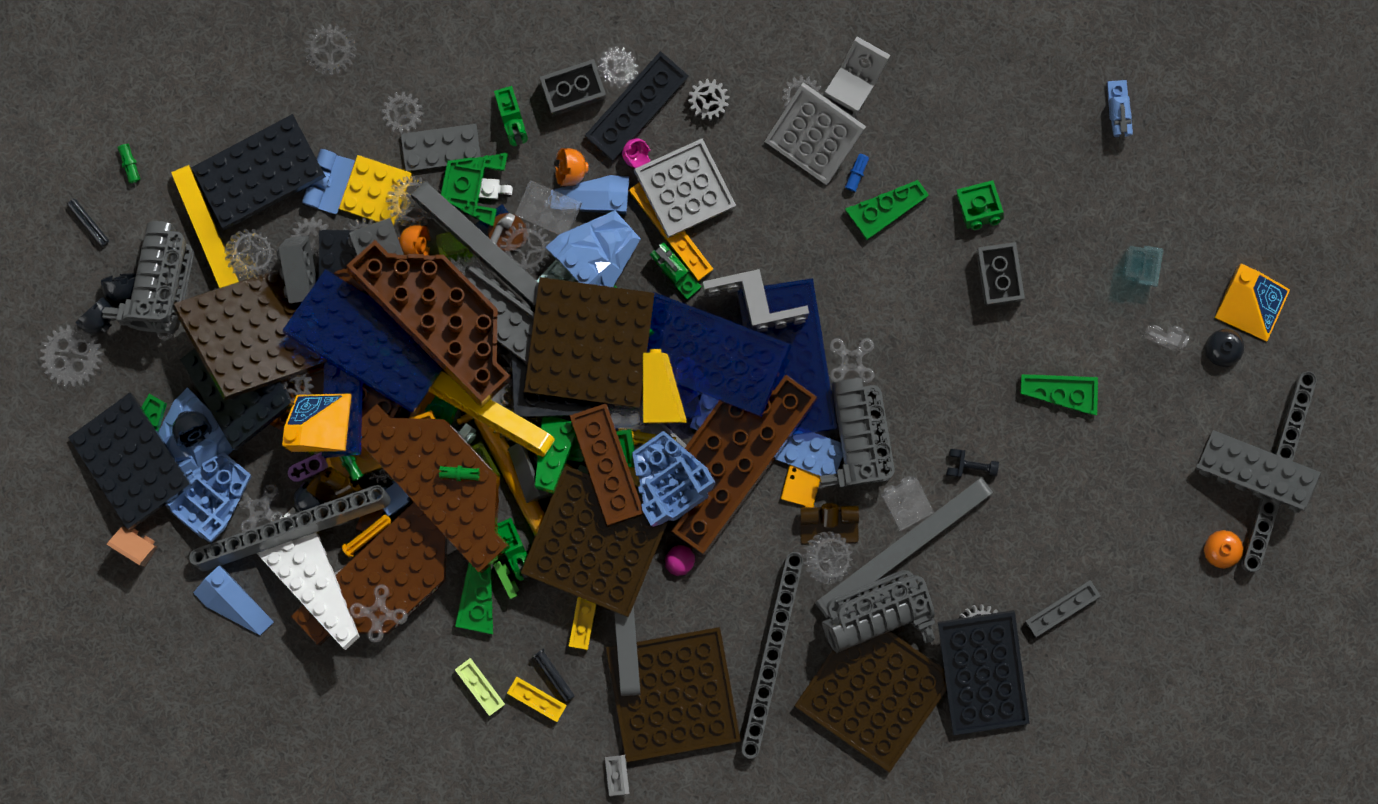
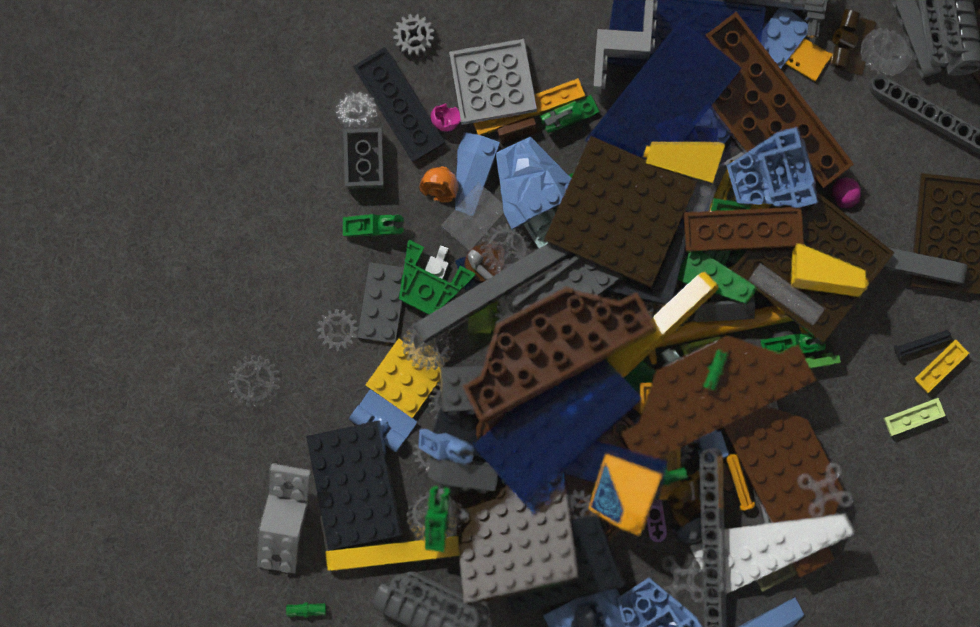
camera: 70 degrees left, 0 degrees up
(206, 115) = (283, 518): none -> light grey bracket
(245, 256) = (437, 519): none -> green plate
(286, 596) = (776, 577): none -> olive plate
(316, 243) = (445, 446): none -> medium blue plate
(414, 240) = (468, 354): orange cylinder -> none
(476, 602) = (833, 397): green wing -> none
(555, 523) = (785, 294): none -> clear plate
(582, 624) = (883, 303): yellow plate -> none
(585, 554) = (824, 273): none -> yellow slope
(643, 224) = (516, 131): none -> reddish brown plate

